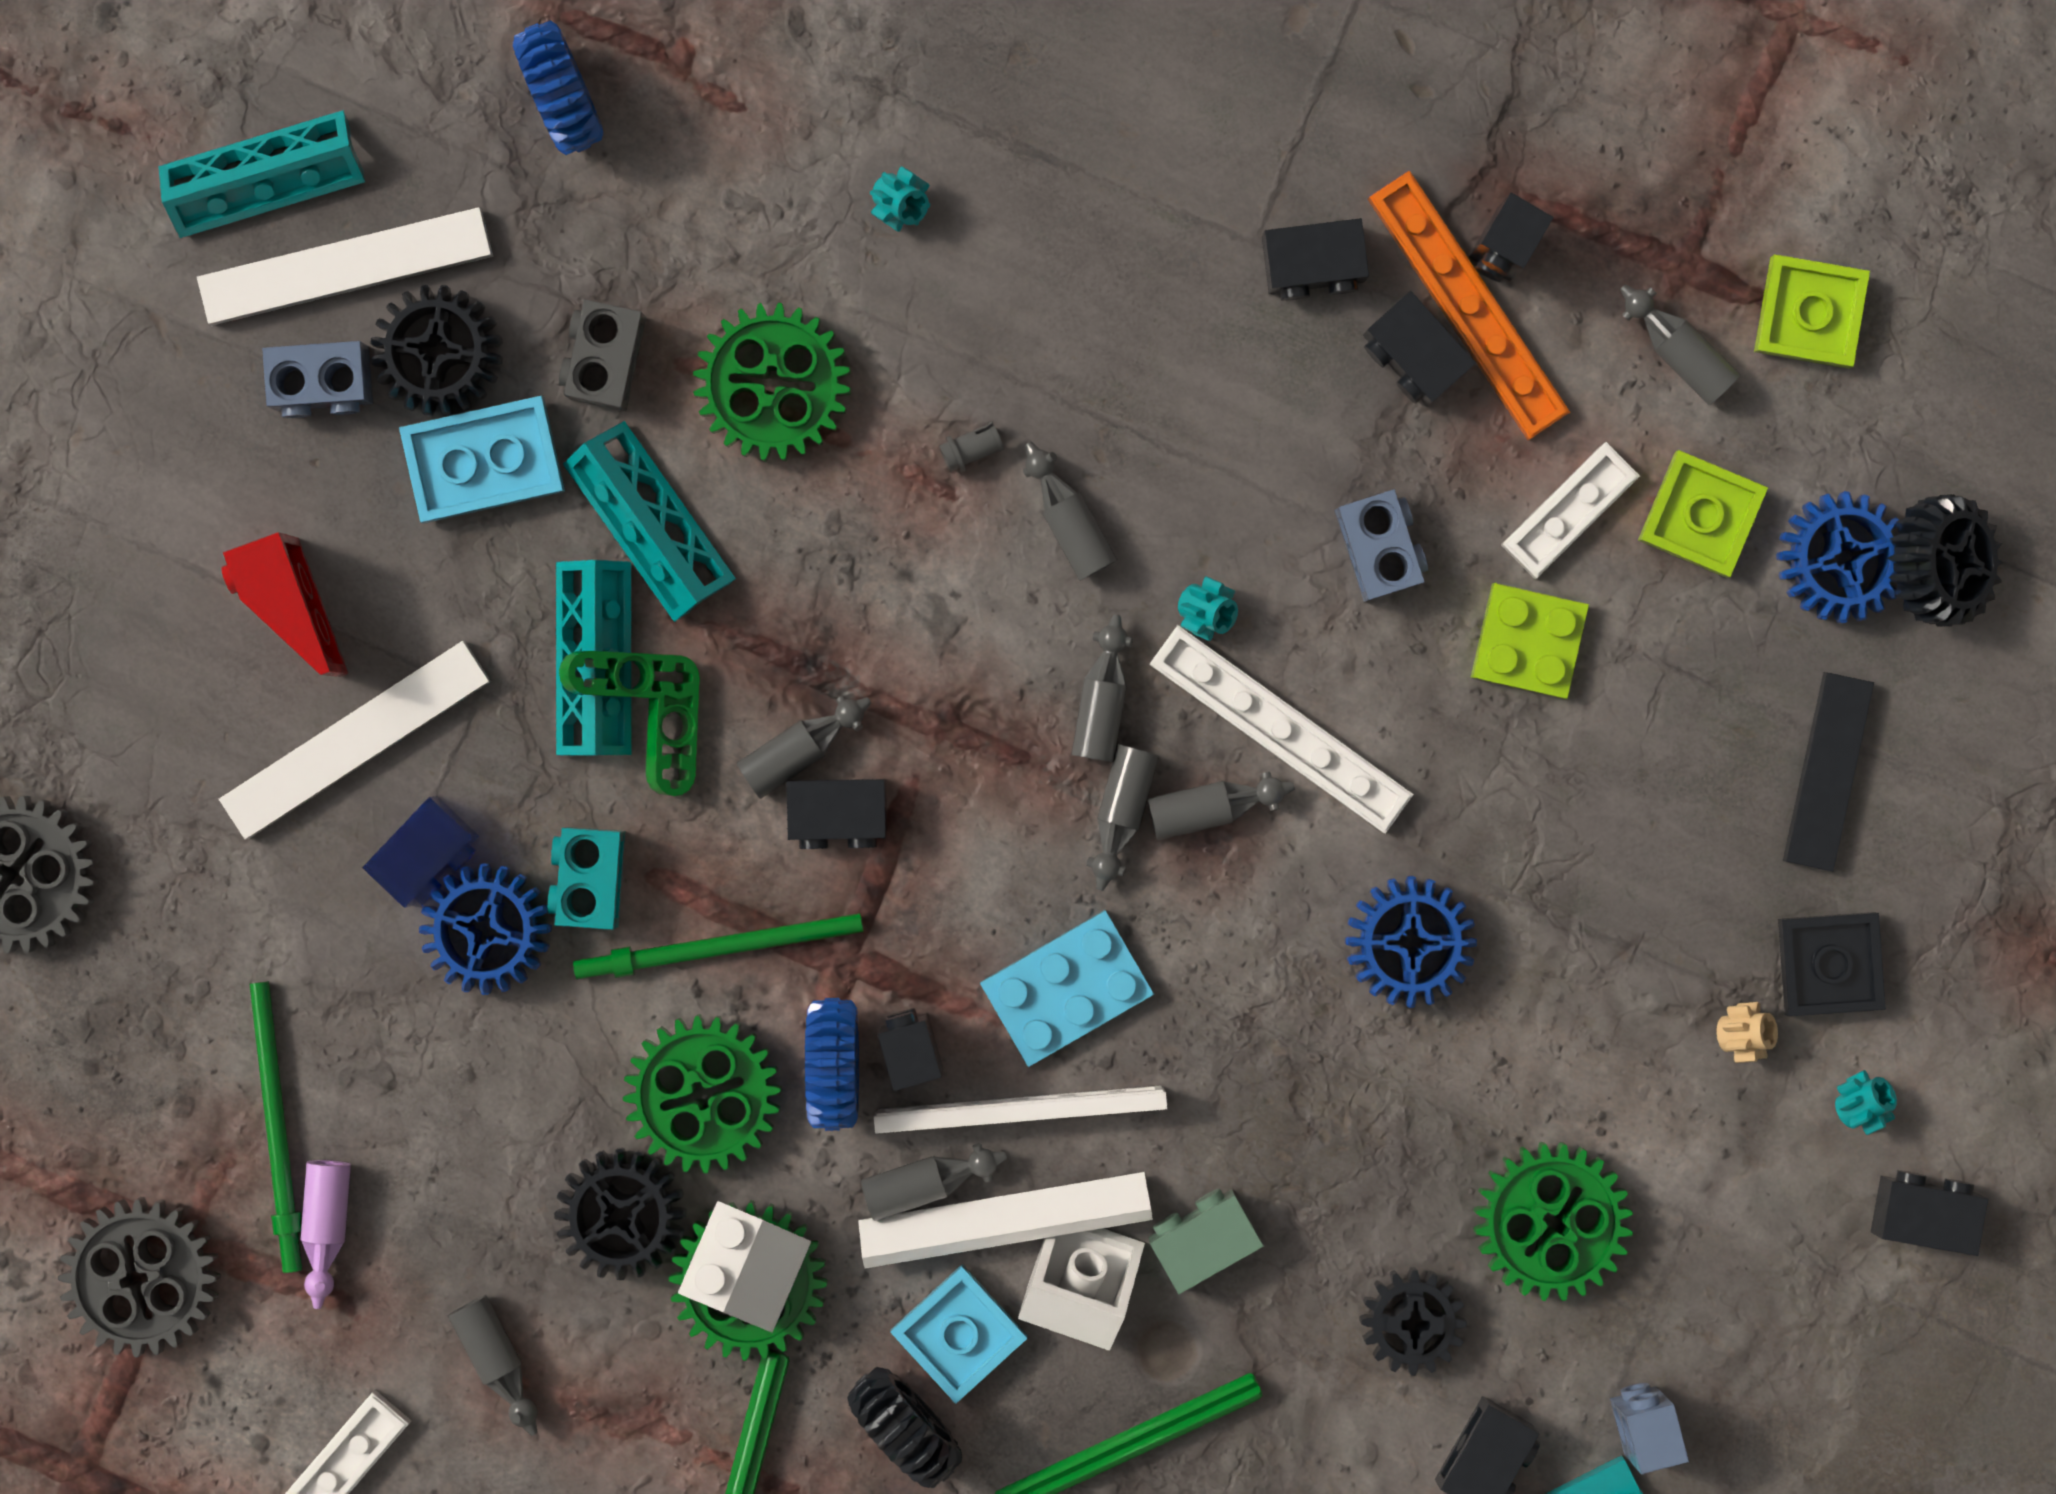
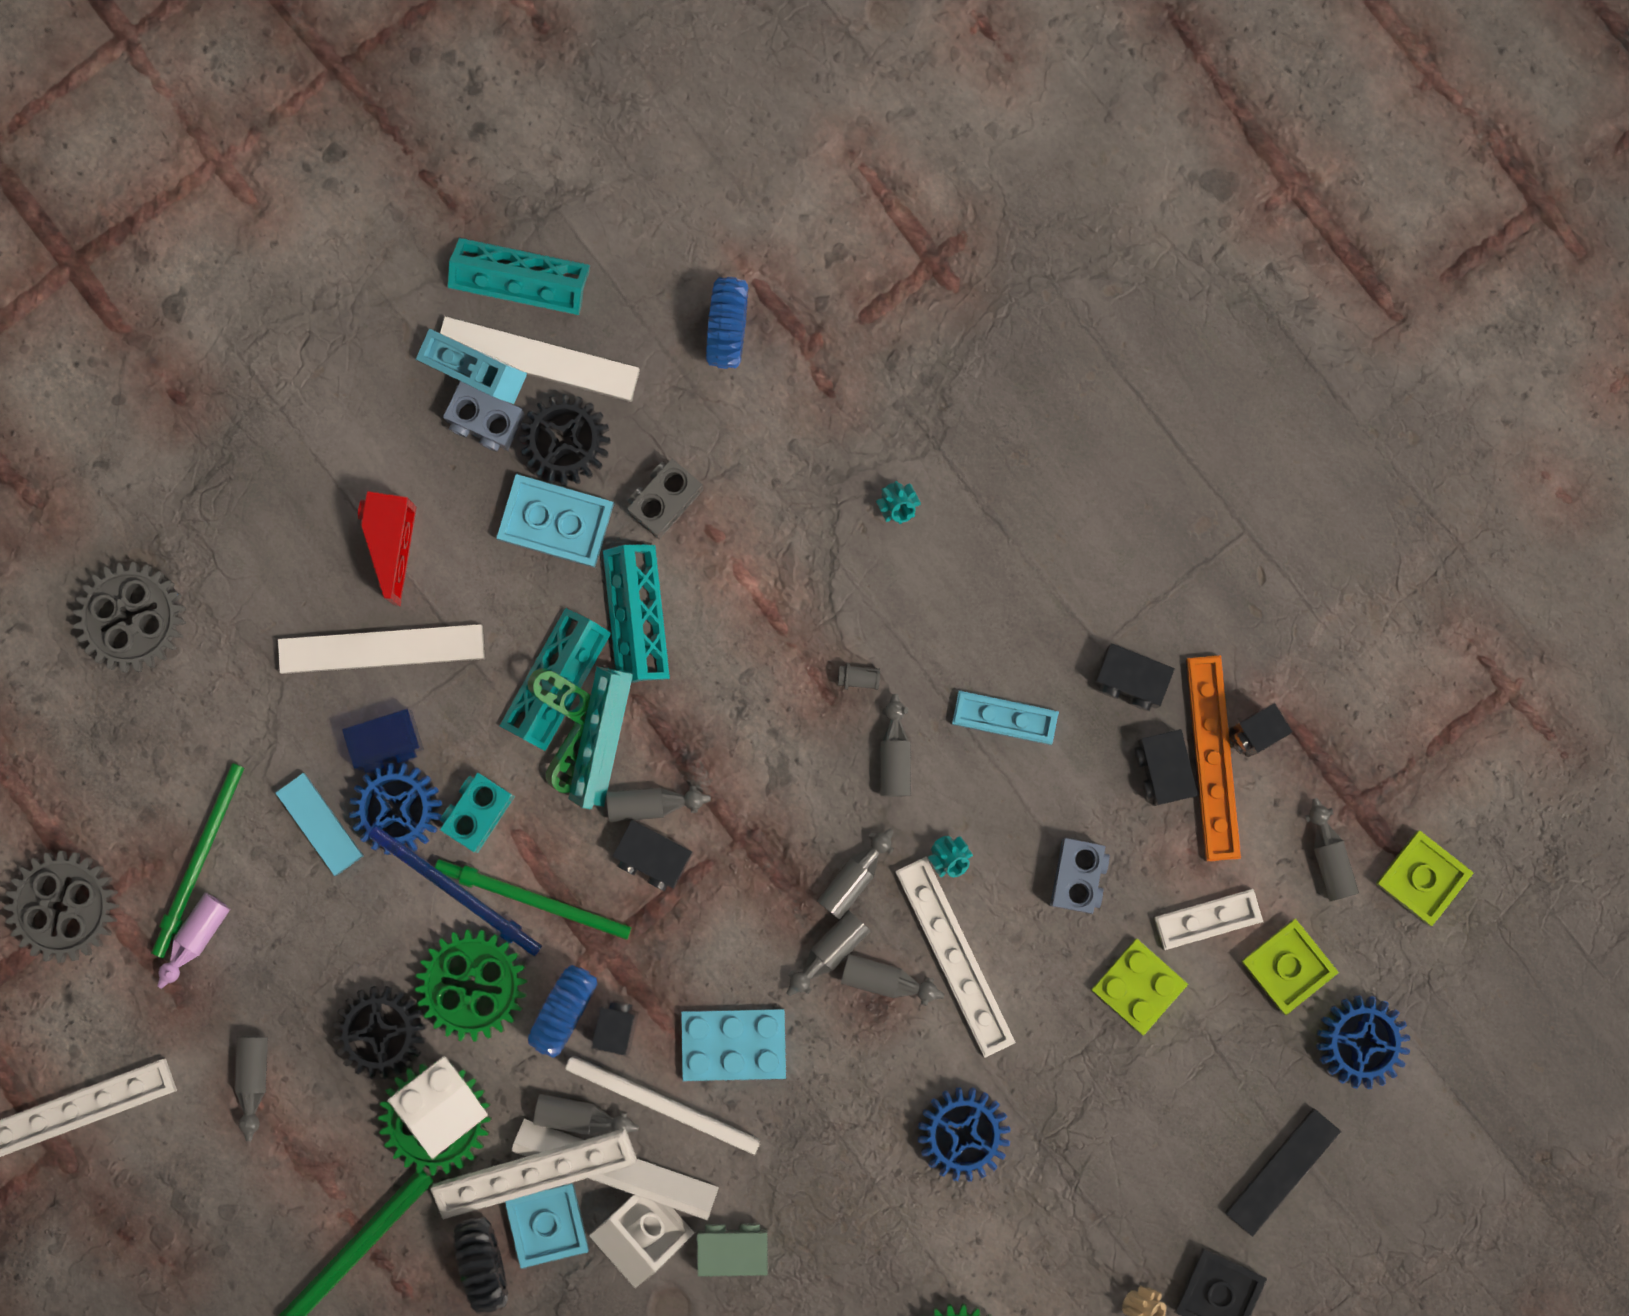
camera: 25 degrees right, 5 degrees down
(266, 322) = (471, 366): none -> medium azure slope
(401, 999) = (319, 824): none -> medium azure tile
(690, 700) = (600, 737): none -> teal fence
(710, 1000) = (508, 930): none -> clear blue bar
(778, 339) = (776, 546): green gear -> none
(908, 1281) = (534, 1173): none -> white tile
(1182, 397) = (1005, 718): none -> medium azure tile
(1945, 560) = (1425, 1078): black gear -> none

